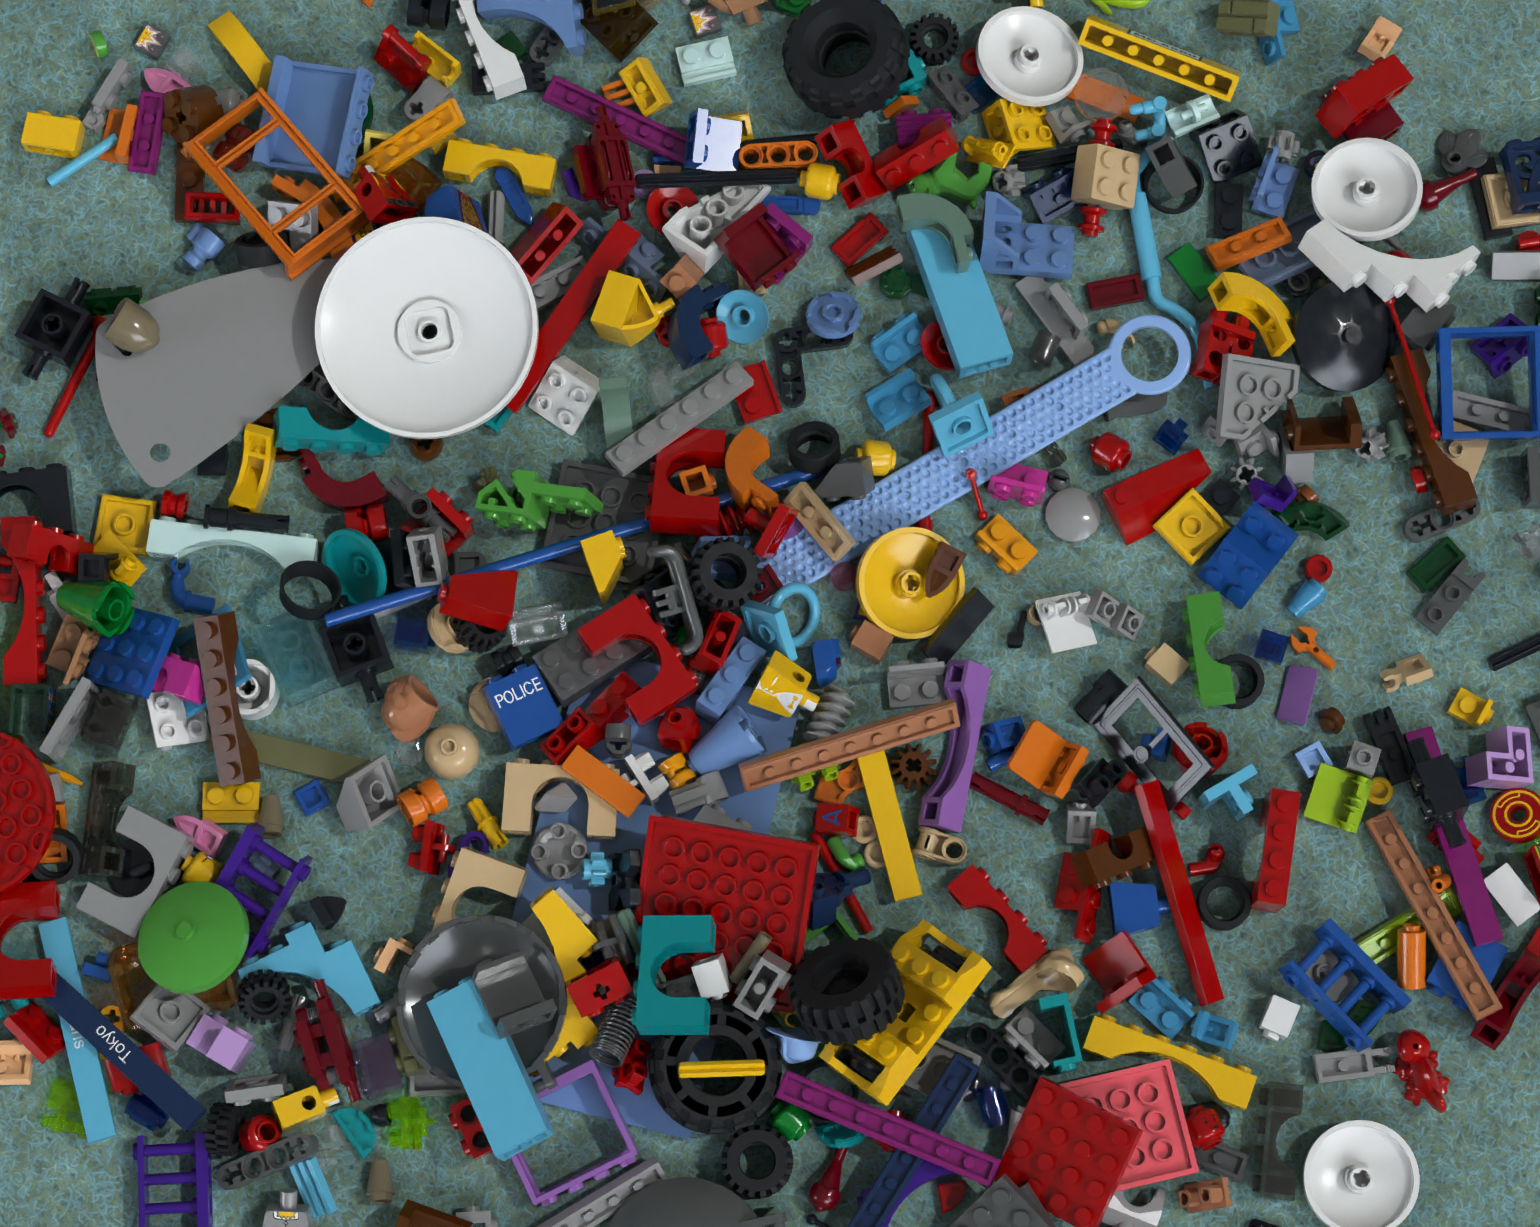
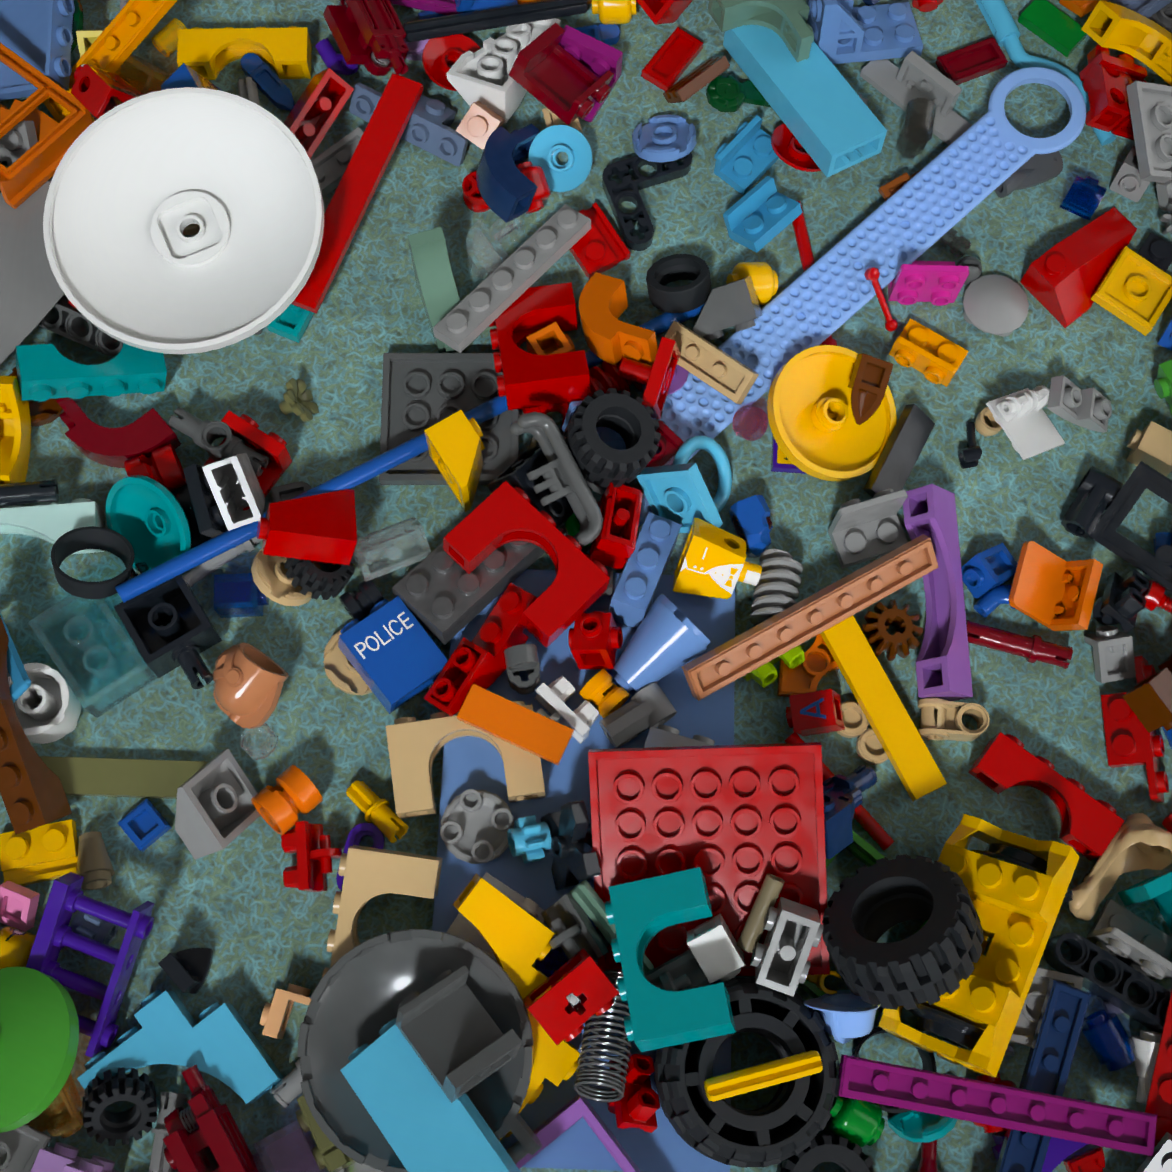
camera: 15 degrees left, 5 degrees down
(425, 455) = (217, 379): reddish brown piece -> none
(451, 751) = (313, 728): tan cylinder -> none
(532, 506) = (364, 397): bright green piece -> none
(556, 799) = (460, 760): light grey slope -> none
(565, 394) = (370, 283): white bracket -> none
(625, 310) = (423, 171): yellow piece -> none
(842, 855) = (833, 757): bright green arm -> none
(870, 641) = (801, 491): nougat brick -> none
(958, 422) = (846, 215): medium azure tile -> none
(1110, 326) = (980, 97): tan arm -> none
(1110, 452) = (1020, 226): red head -> none

